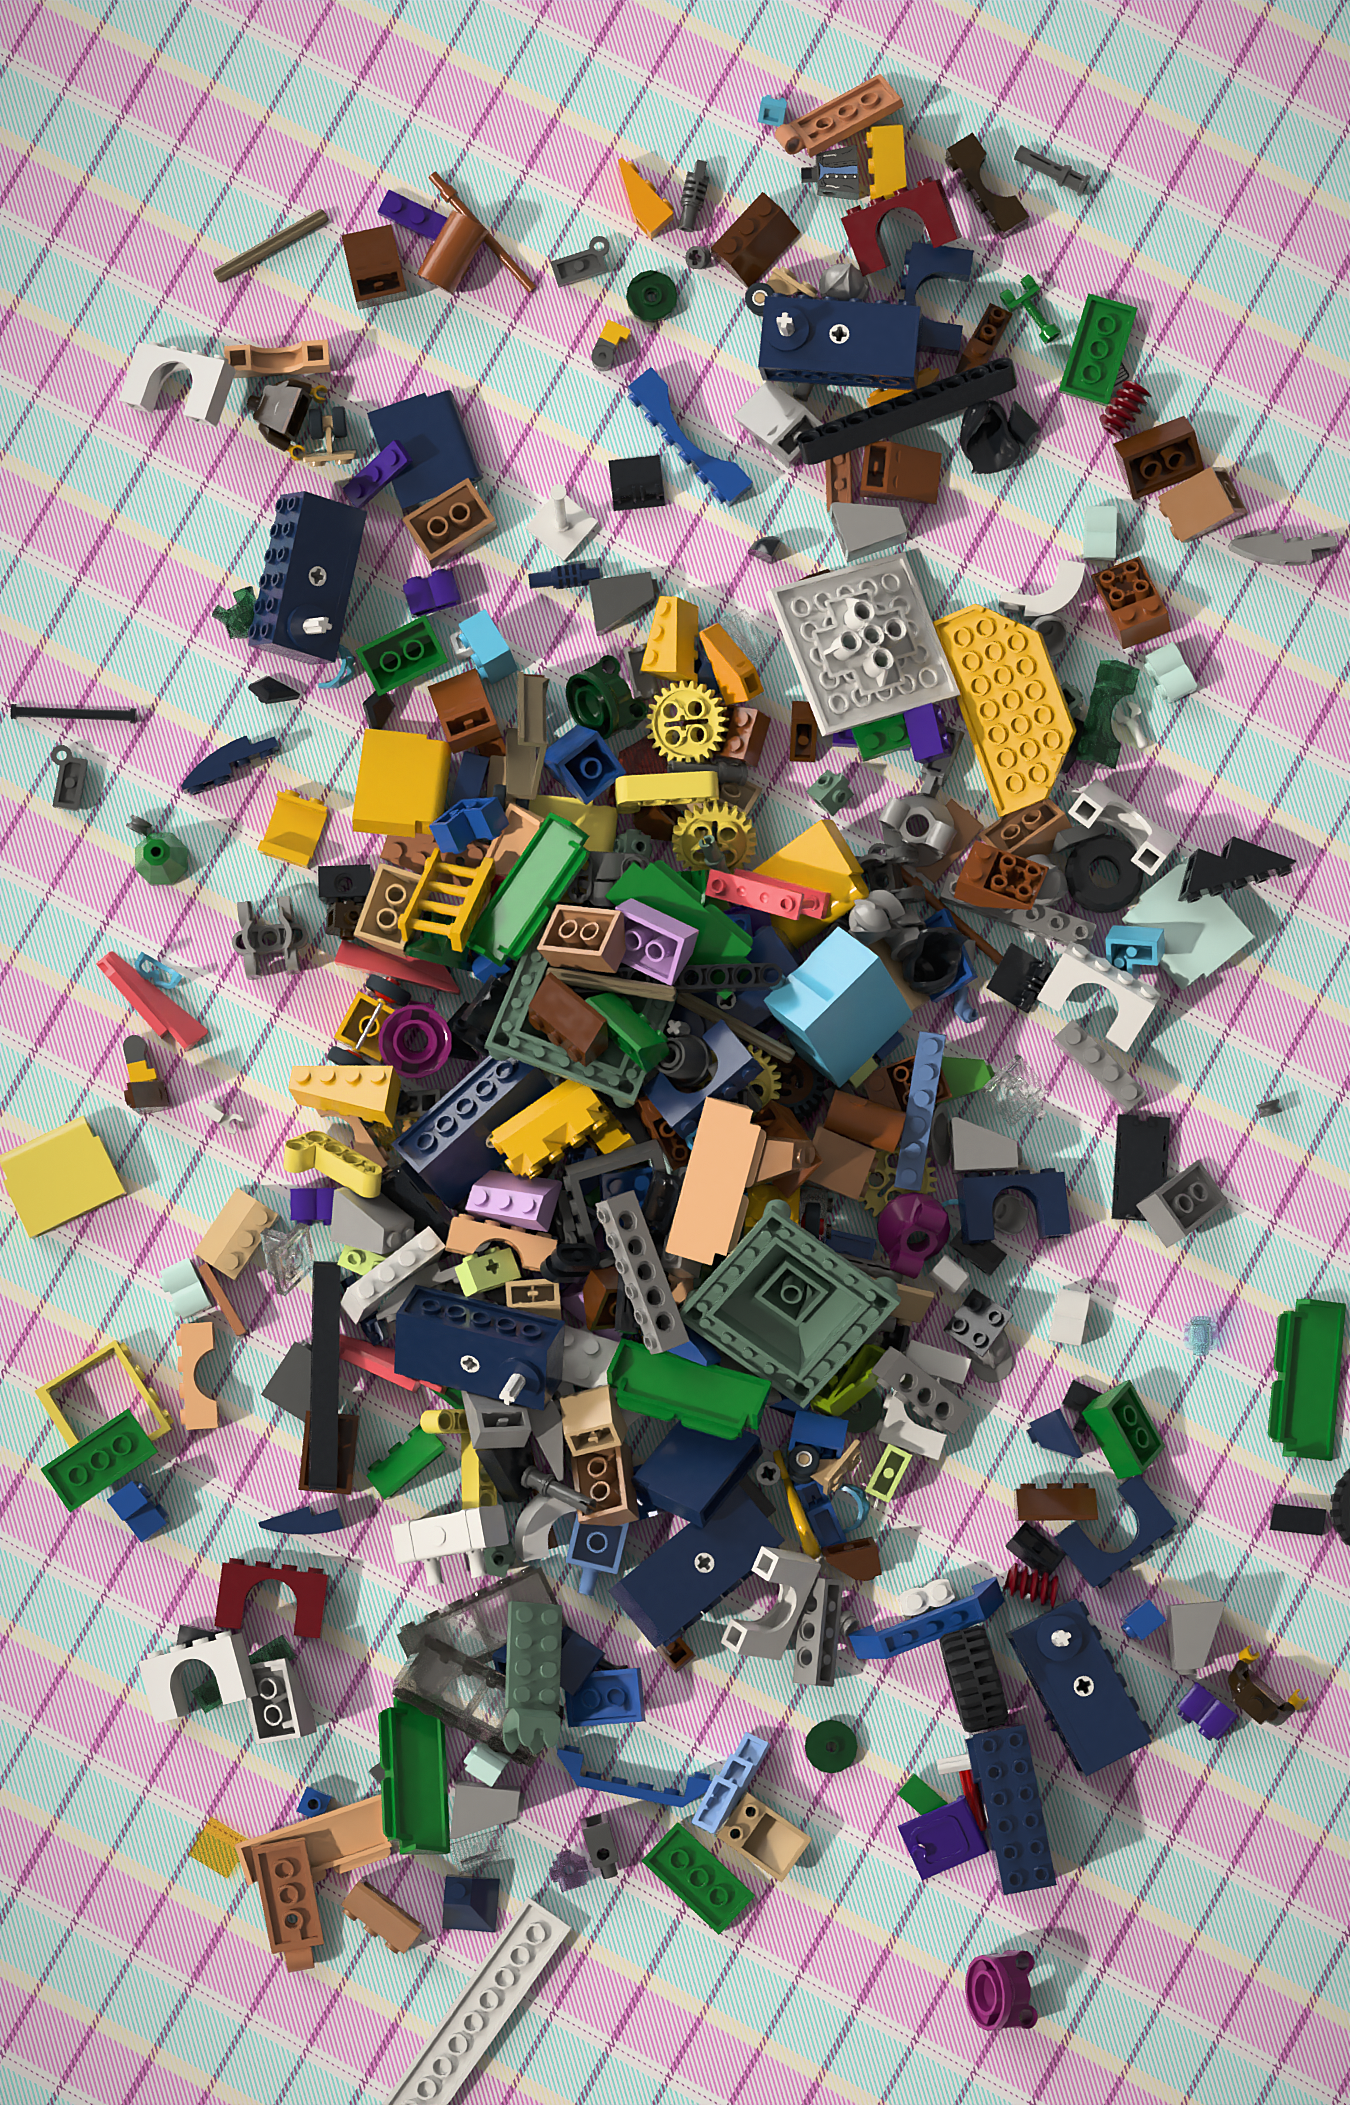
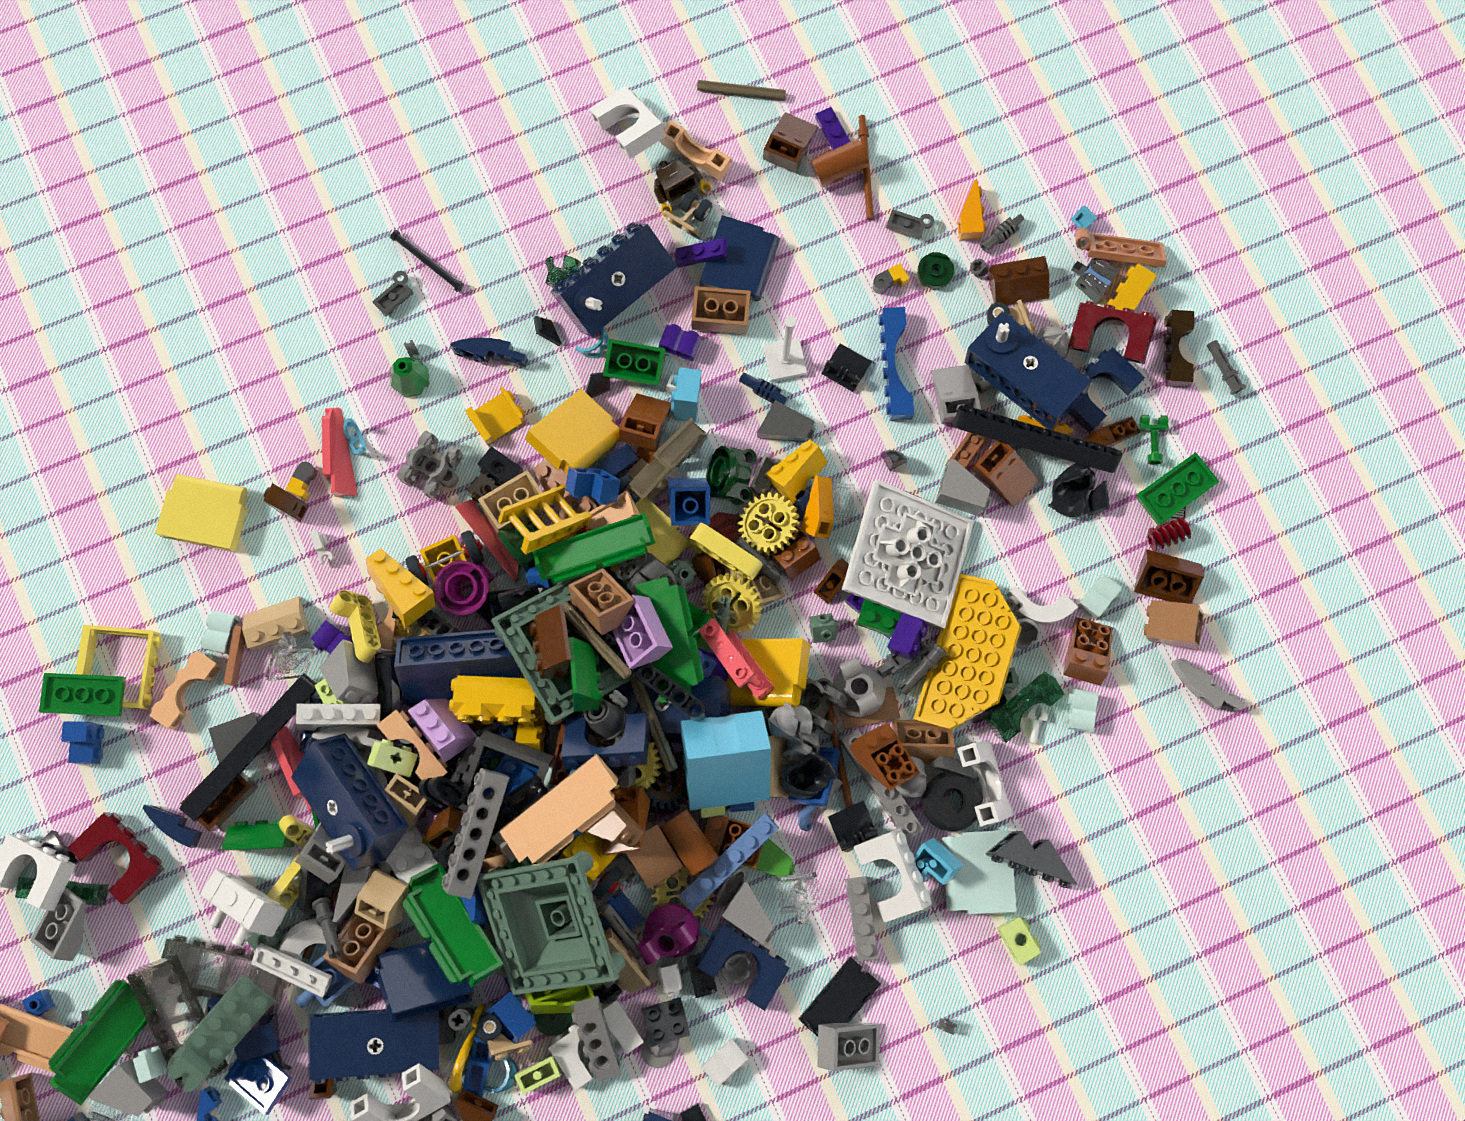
camera: 35 degrees right, 5 degrees down
(554, 1561) = (291, 970): none -> white plate
(971, 744) = (929, 662): none -> dark grey pin
(1263, 964) = (1009, 932): none -> yellowish green brick

